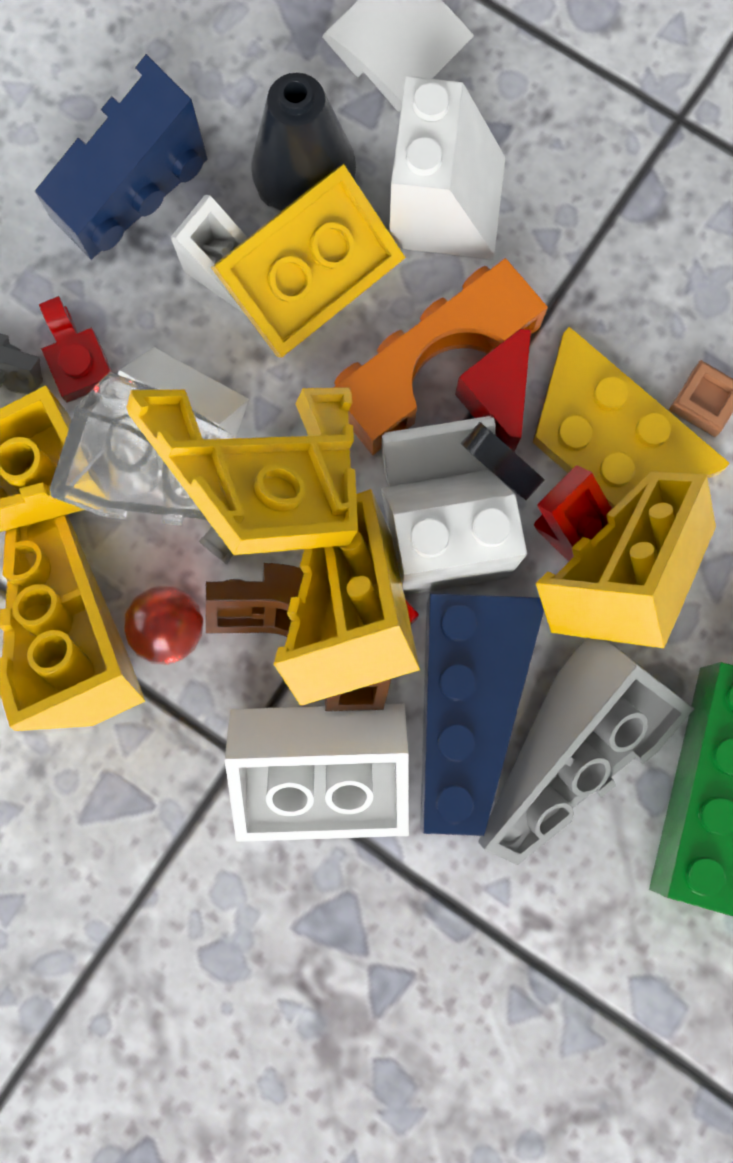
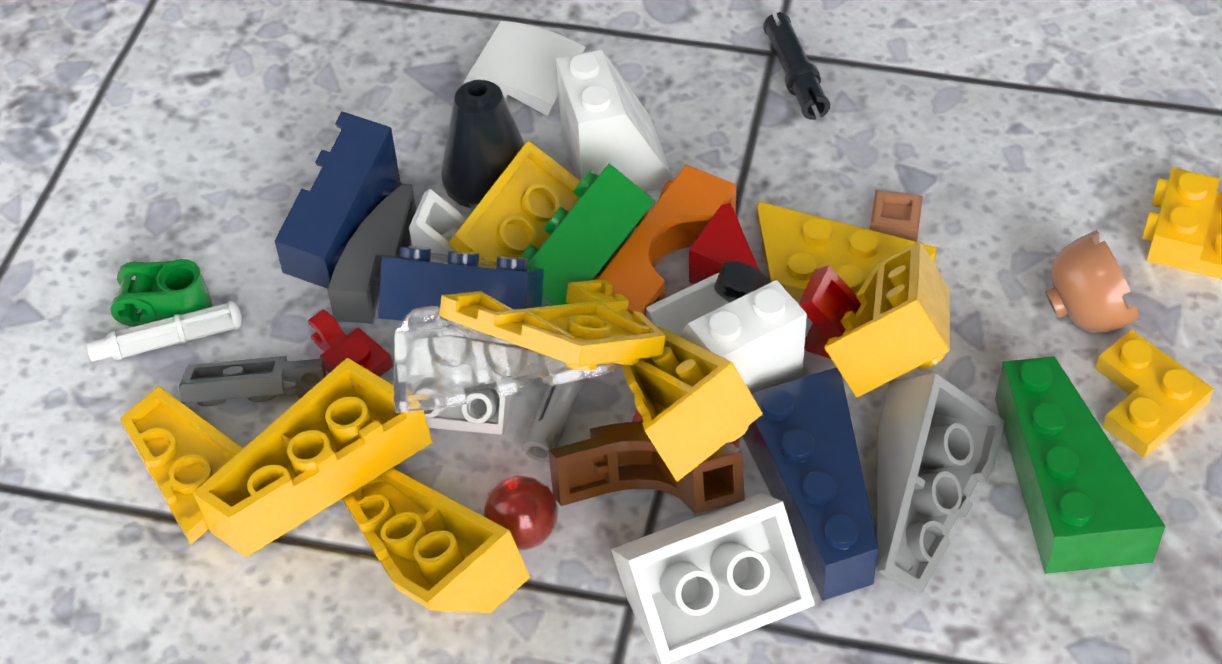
camera: 20 degrees left, 30 degrees down
(136, 243) = (357, 275): none -> dark grey slope
(185, 338) = (421, 278): none -> dark blue wedge
(347, 322) = (588, 233): none -> green wedge
(693, 171) = (801, 76): none -> black pin

